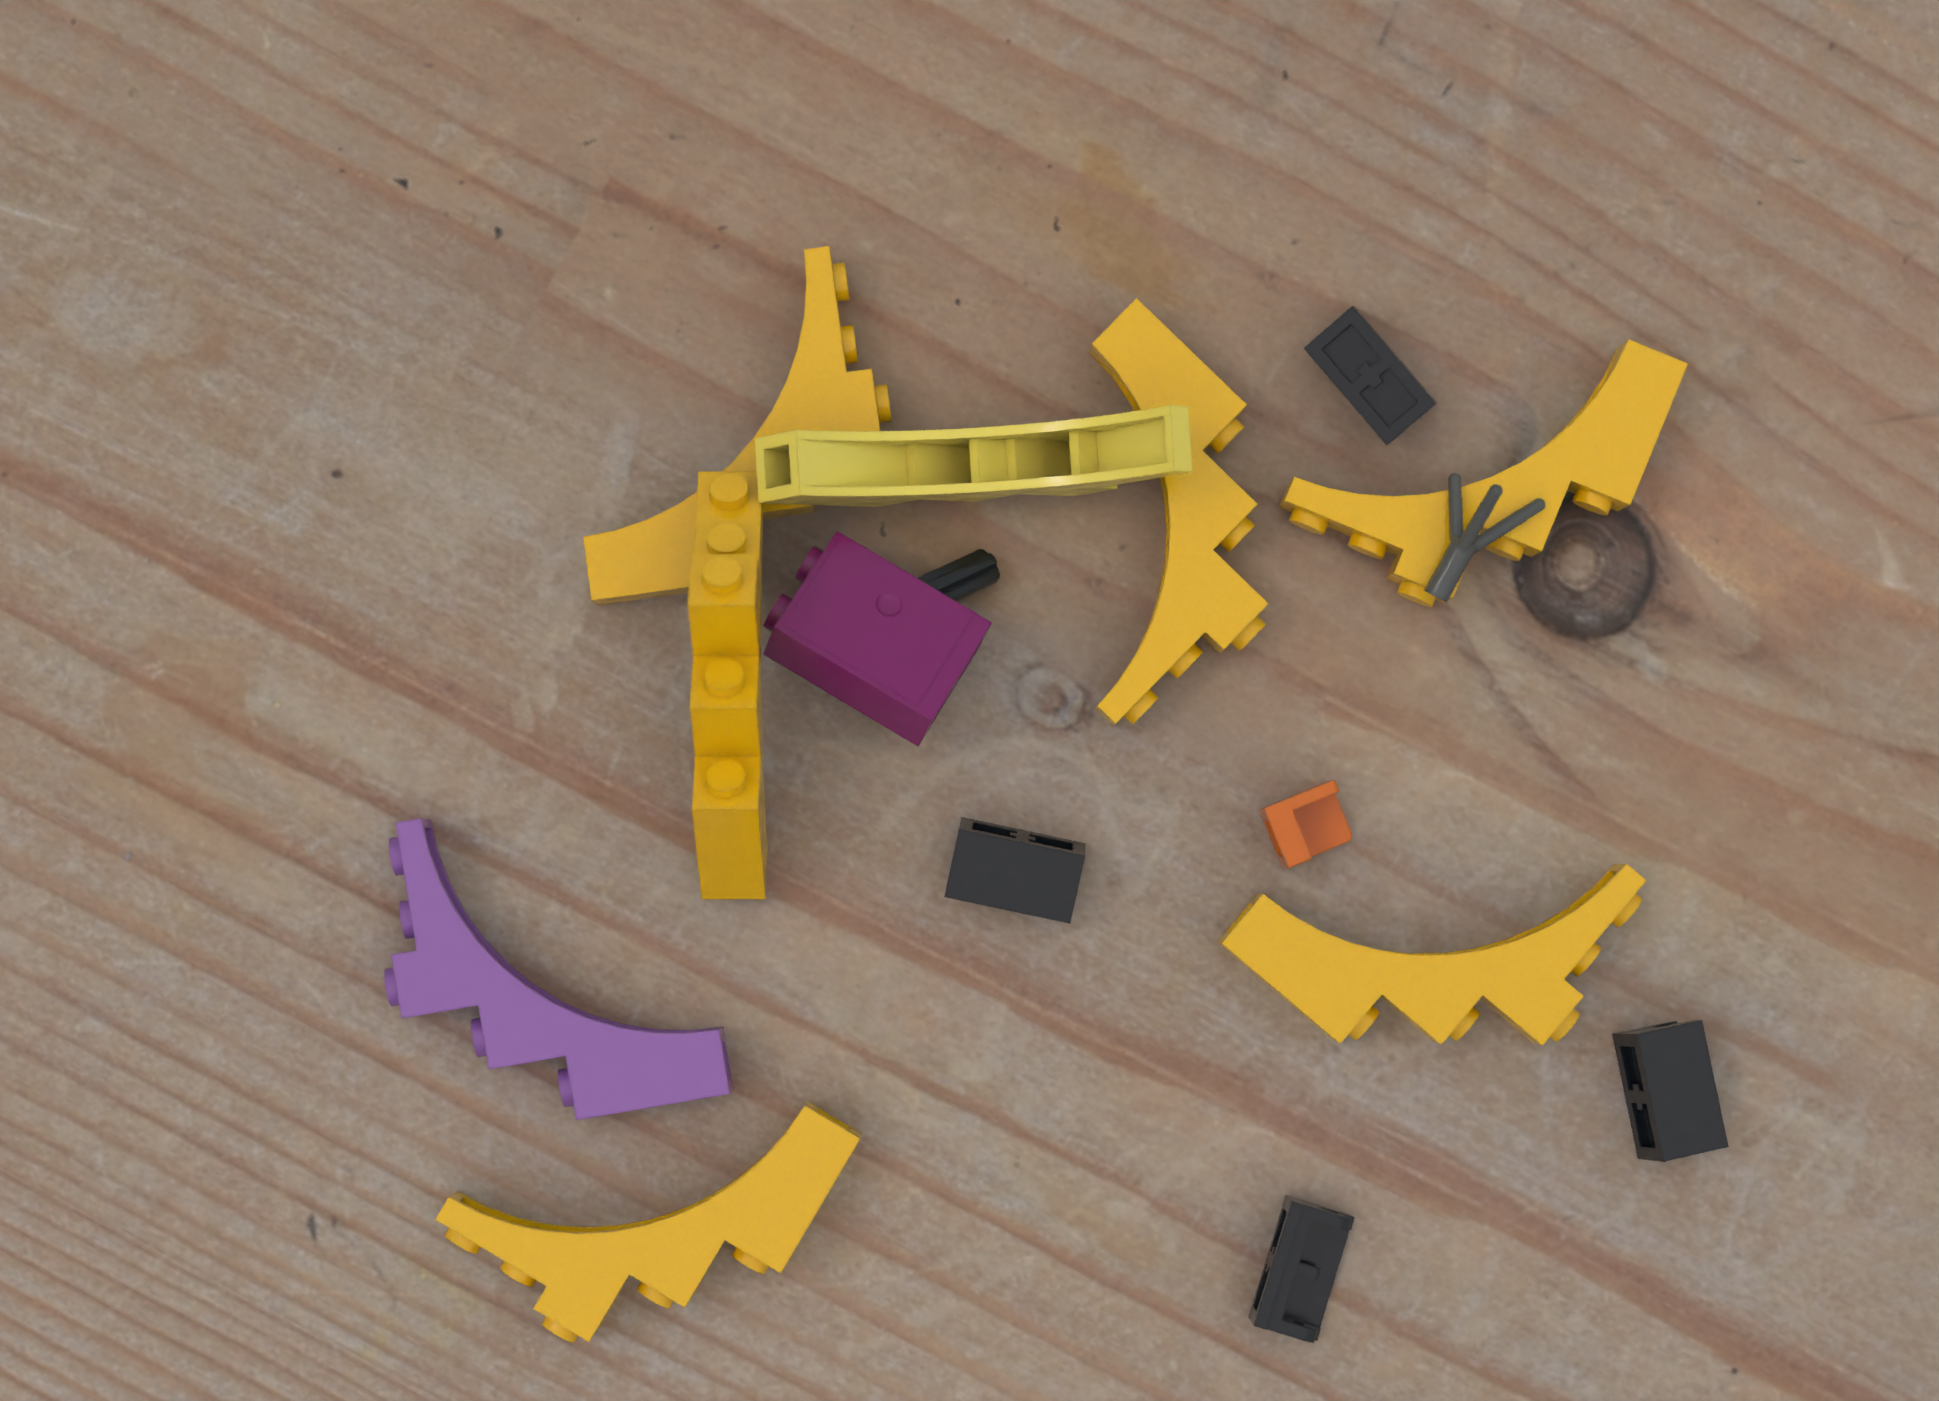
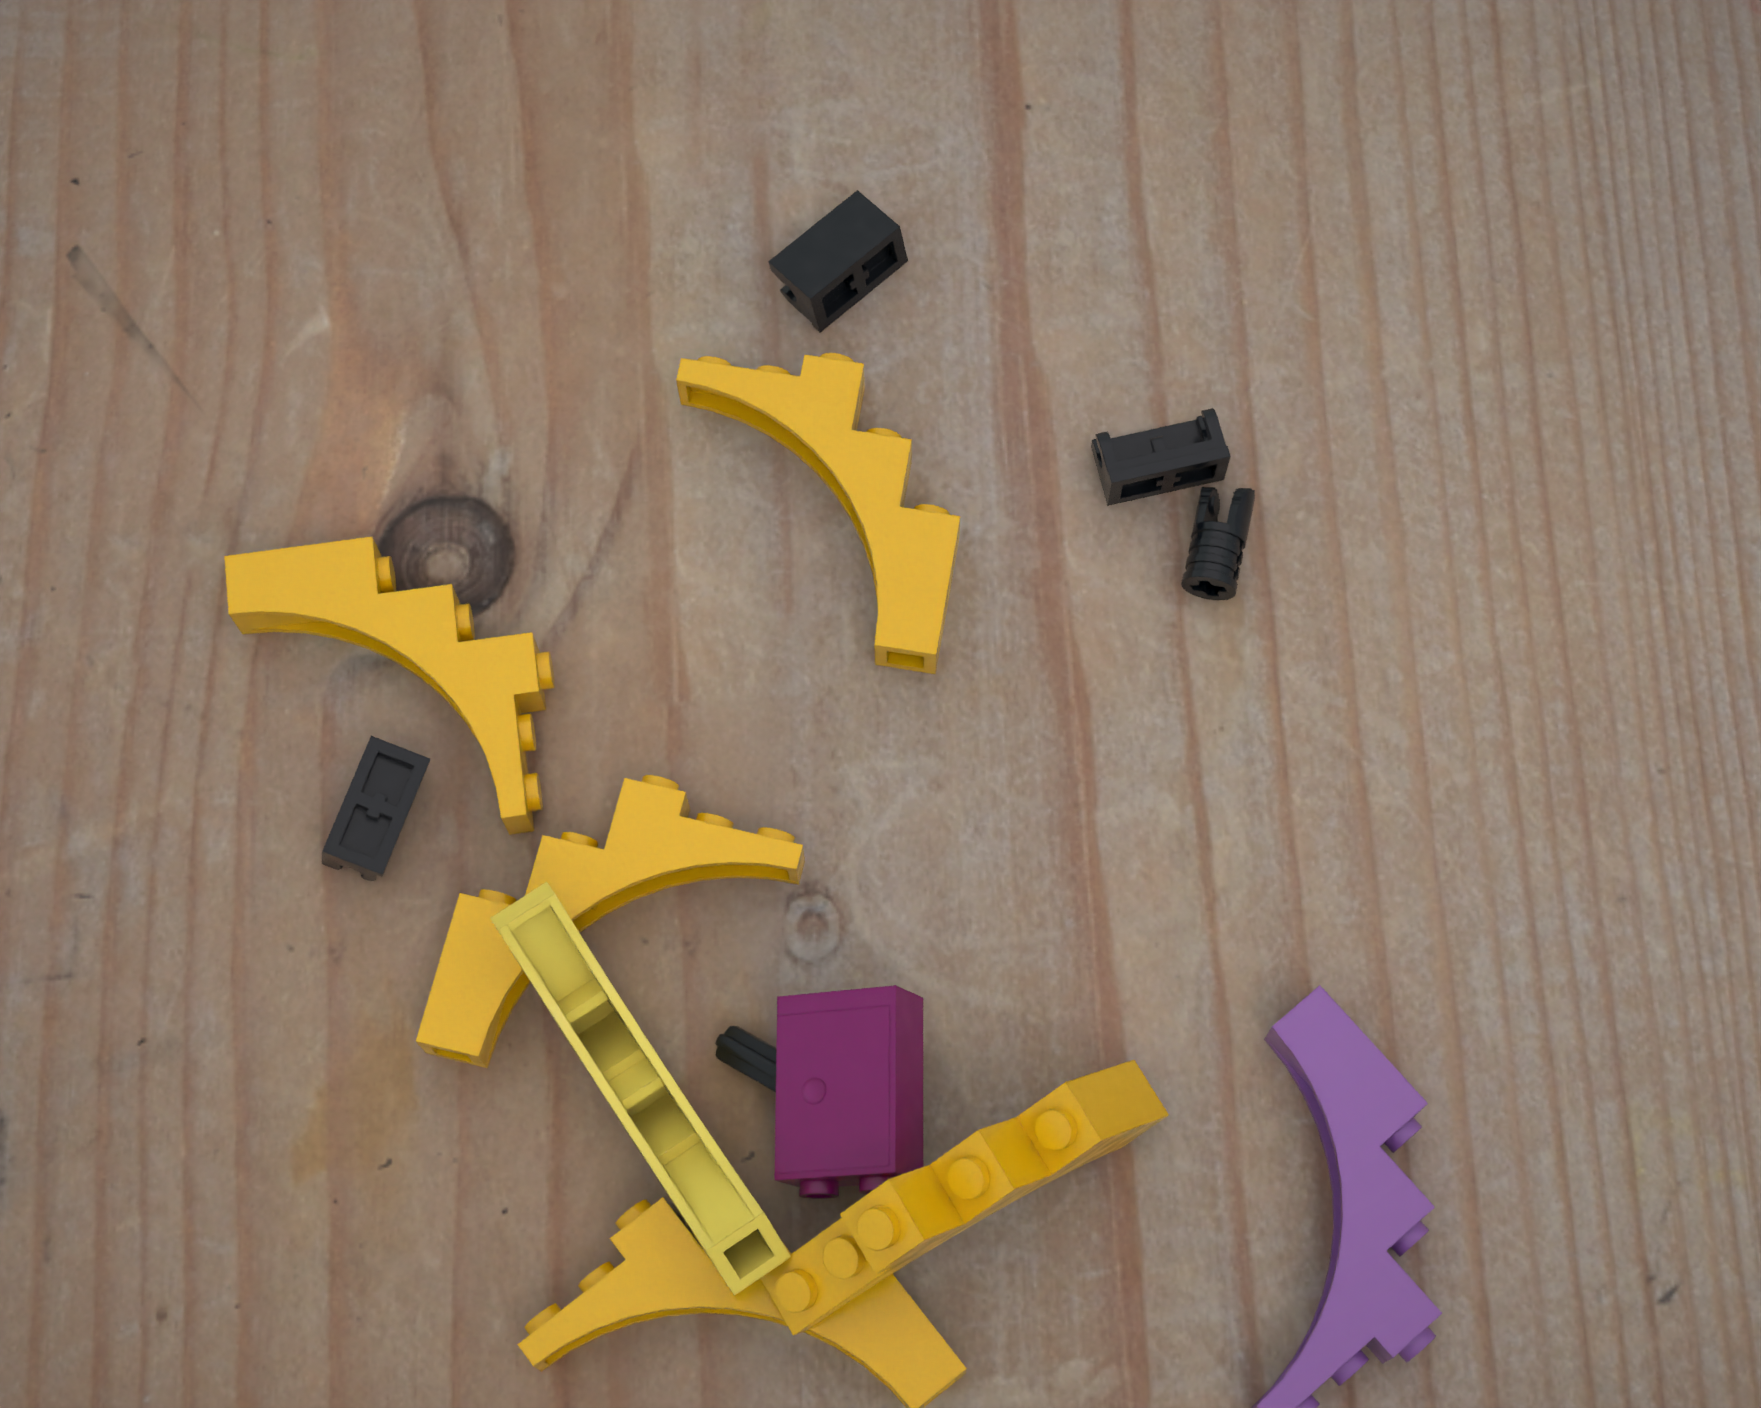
camera: 115 degrees left, 15 degrees down
(588, 1266) = (1483, 960): yellow arch -> none
(1015, 870) = (977, 864): black hinge -> none
(1179, 1261) = (1217, 546): none -> black hinge
(1306, 824) = (794, 654): orange panel -> none
(1467, 543) = (487, 642): dark grey plant -> none

